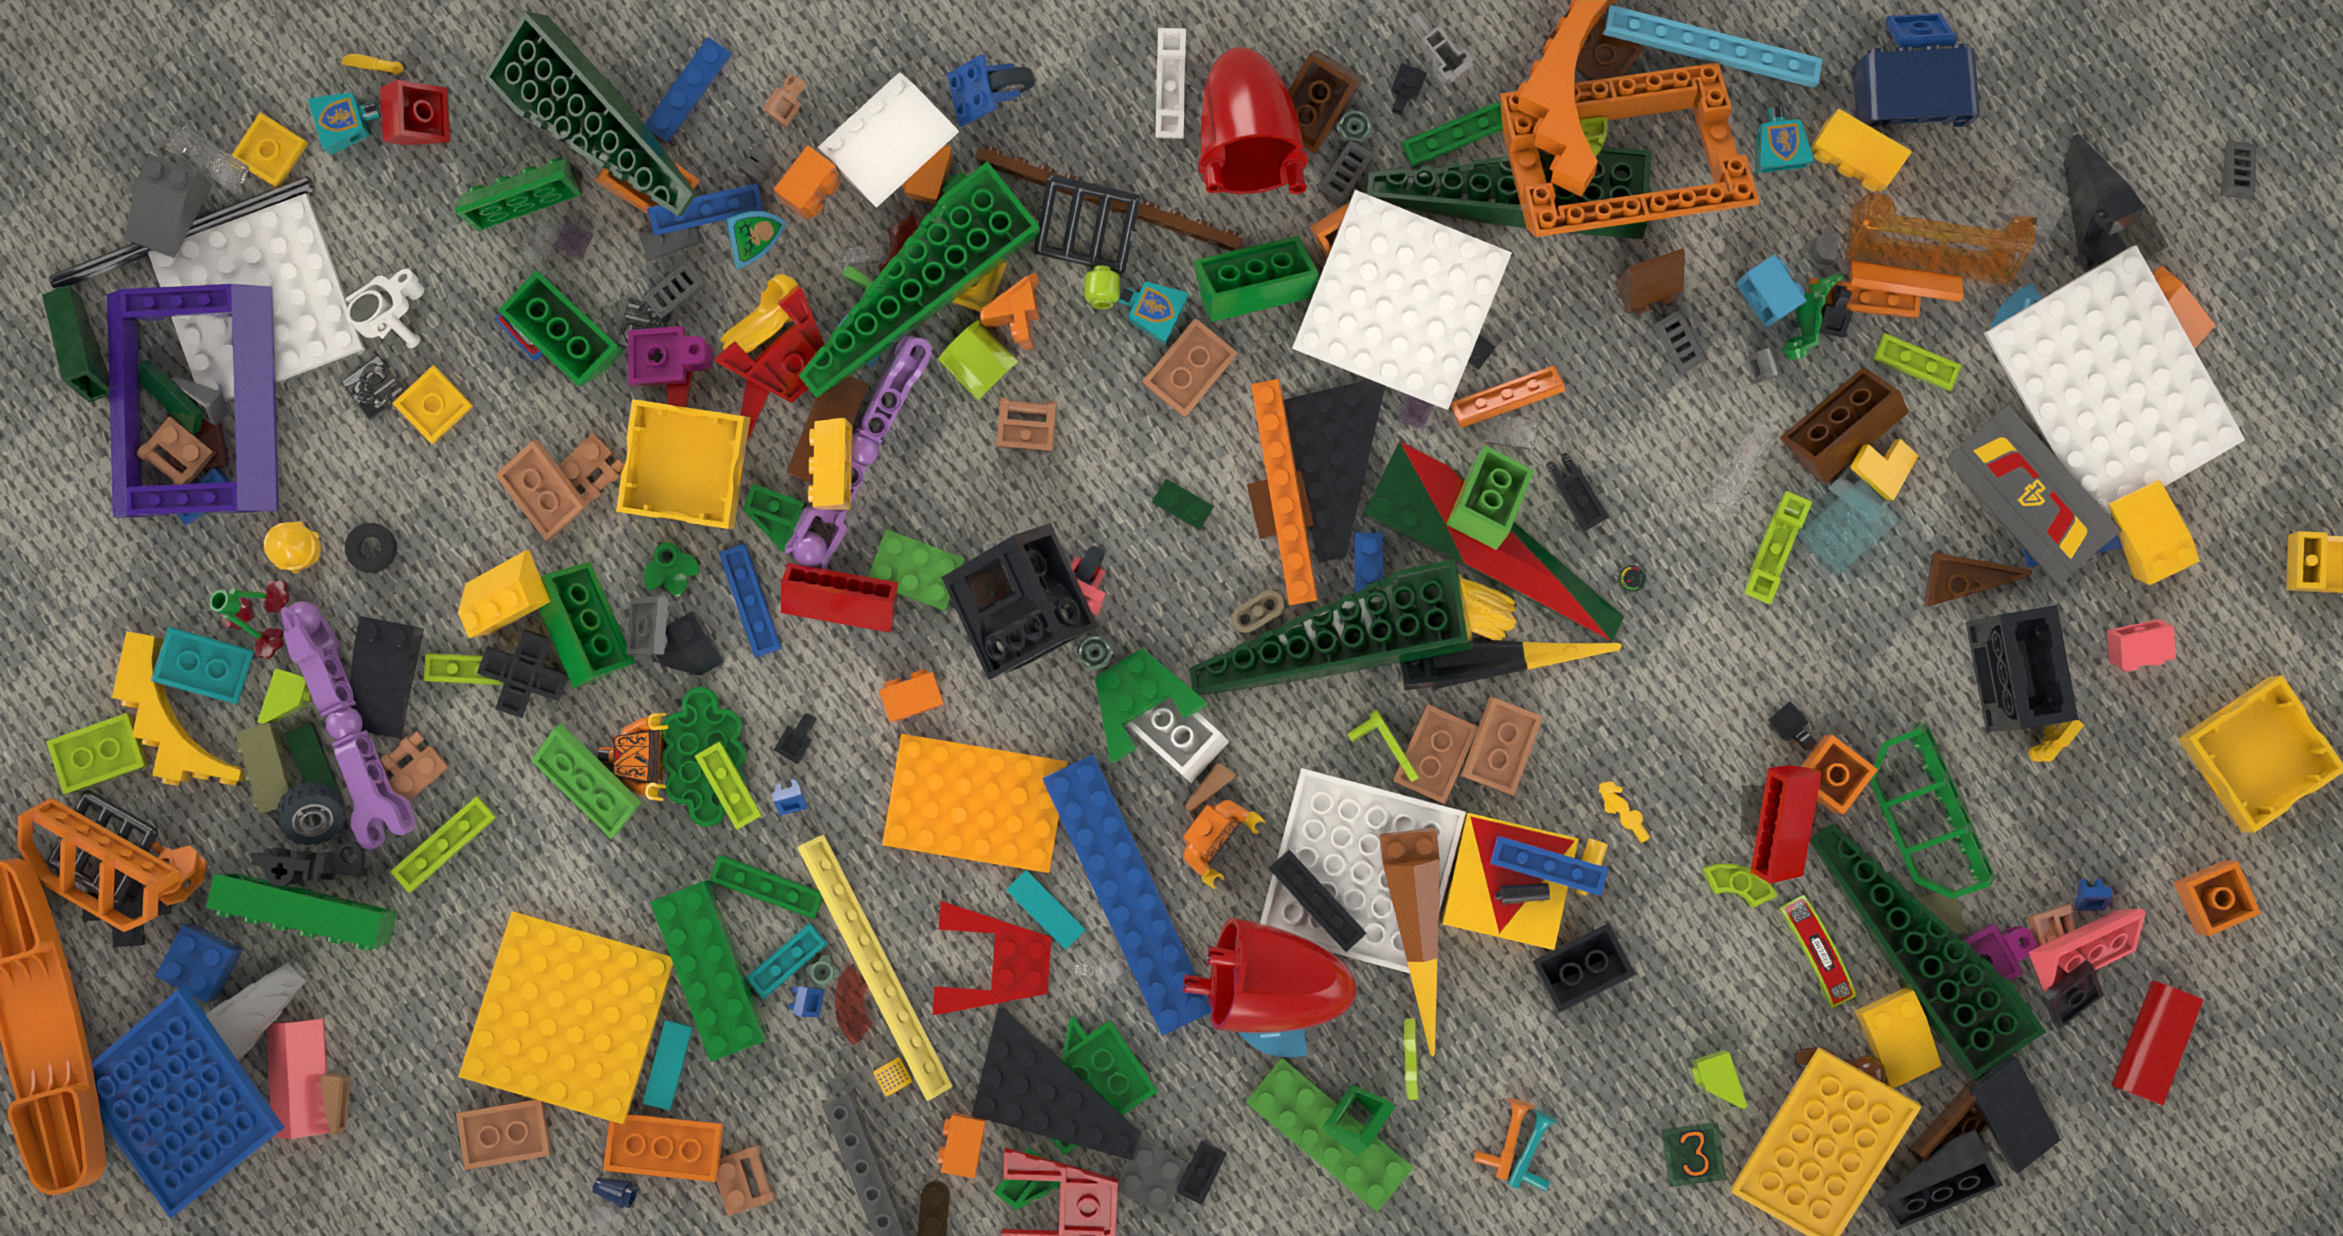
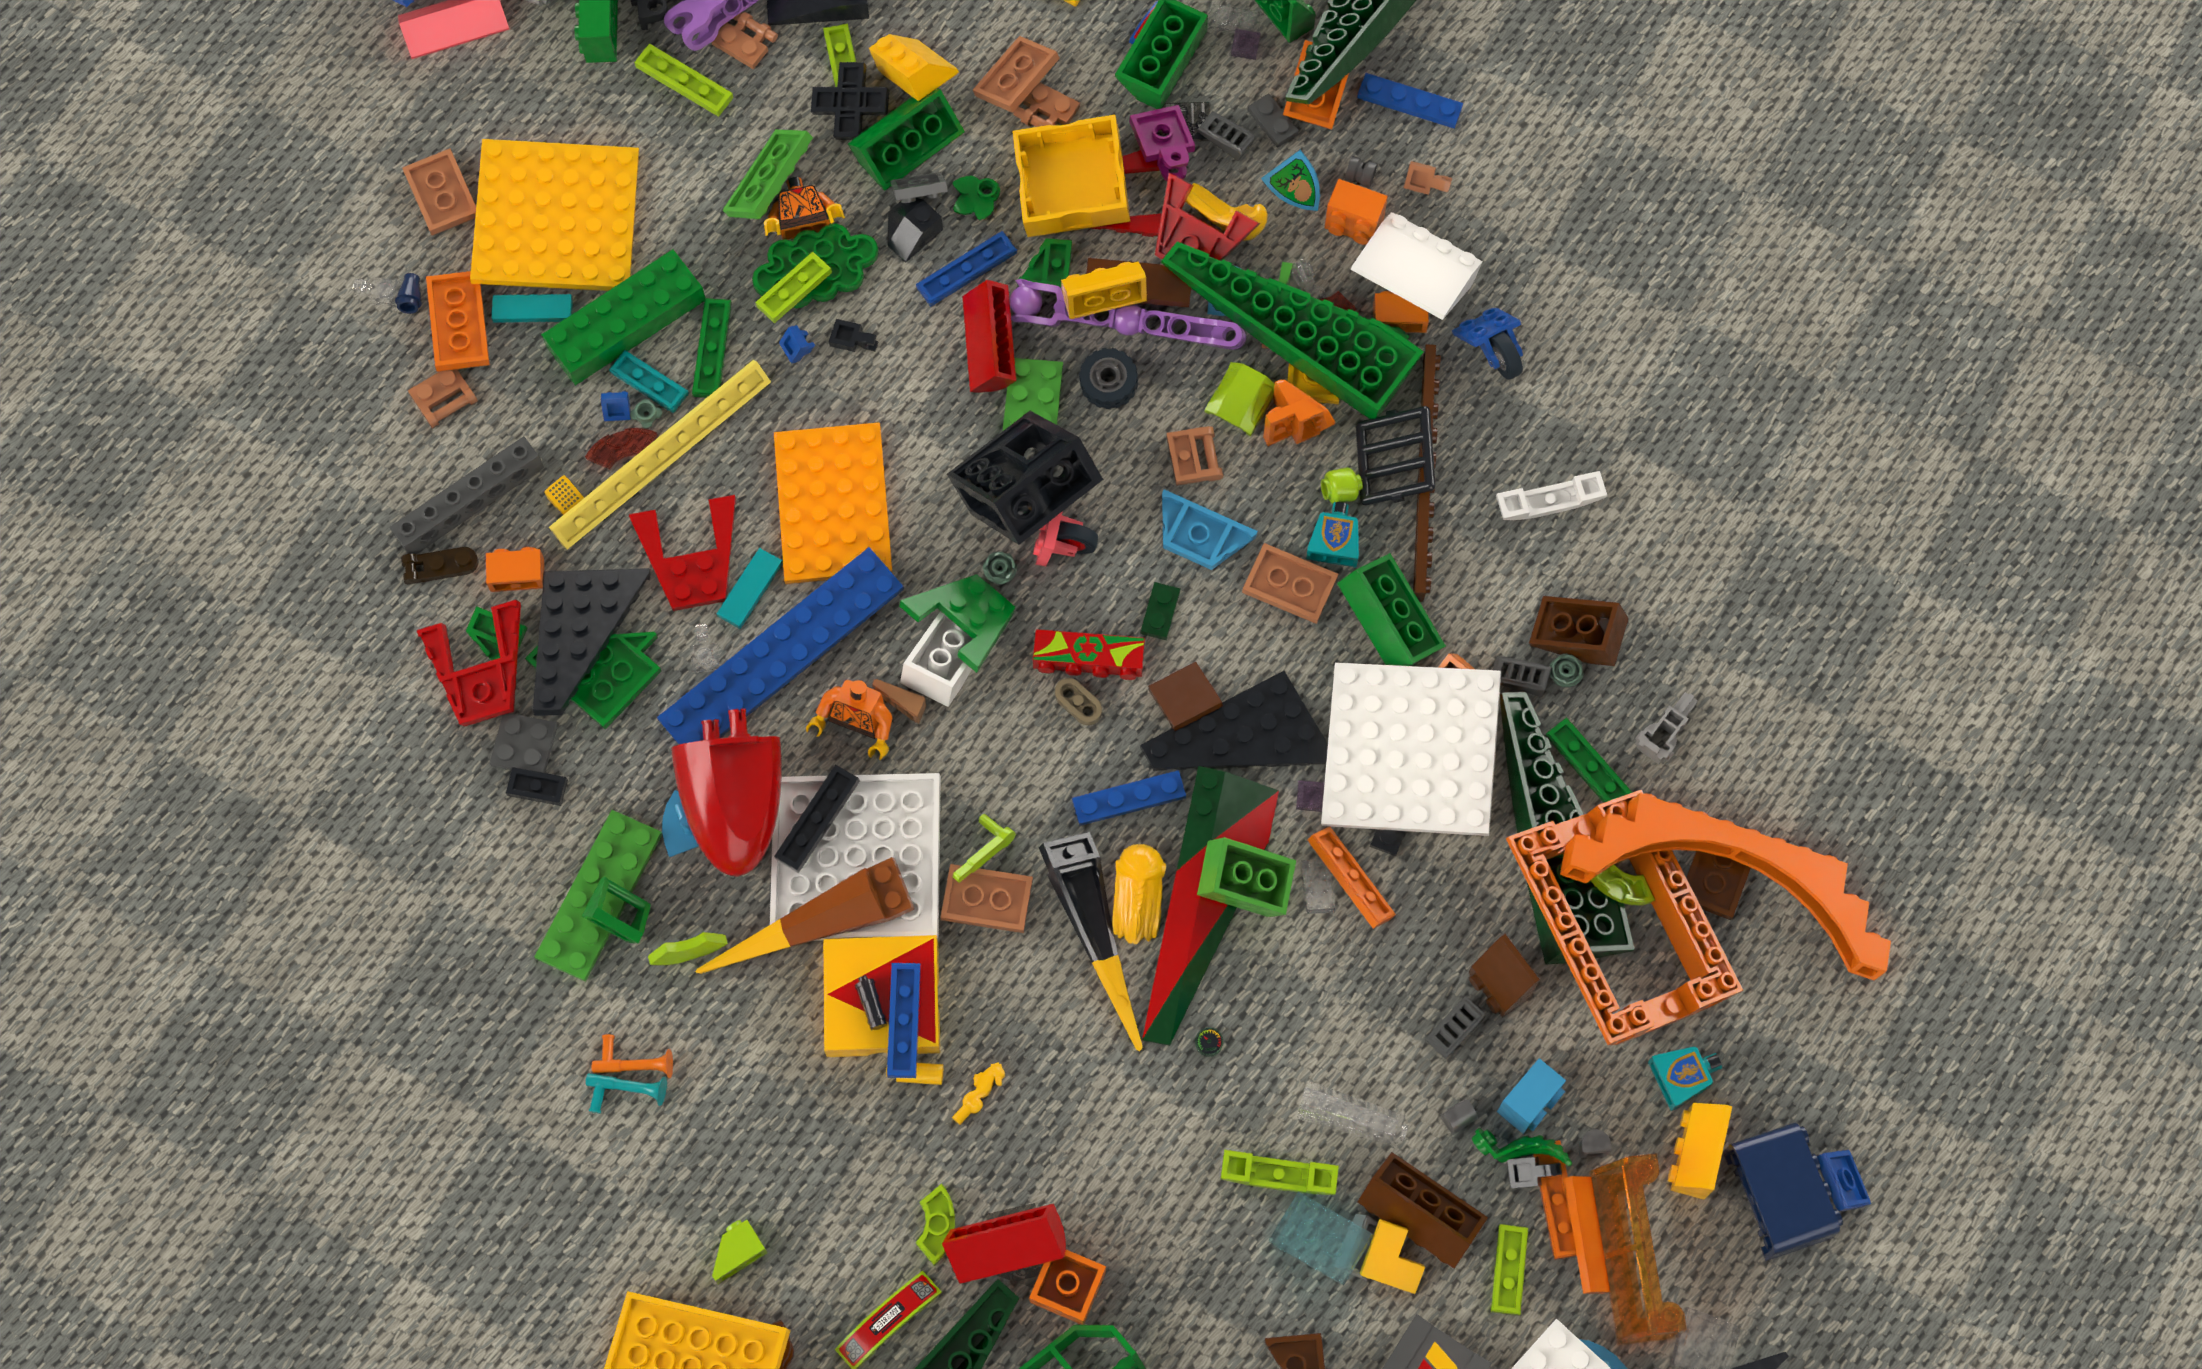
camera: 80 degrees right, 15 degrees down
(336, 1096) = (439, 54): medium nougat slope -> none
(707, 209) = (1306, 138): blue plate -> none
(911, 696) = (915, 421): orange brick -> none
(918, 505) = (1106, 363): none -> black wheel
(1111, 442) = (1200, 532): none -> dark azure wing
(1211, 586) = (1088, 654): none -> red brick
(1249, 128) = (1527, 562): red windscreen -> none
(1284, 492) = (1196, 692): orange plate -> none
(1387, 623) = (1097, 813): dark green wedge -> none
(1406, 85) = (1623, 709): black plate -> none
(1501, 746) = (1010, 956): nougat plate -> none
(1577, 494) = (1275, 968): black hinge -> none
(1583, 968) = (812, 1086): black slope -> none
(1693, 1154) = (657, 1247): clear green tile -> none
(1712, 46) = (1757, 982): medium azure plate -> none
(1790, 724) = (1109, 1234): black plate -> none

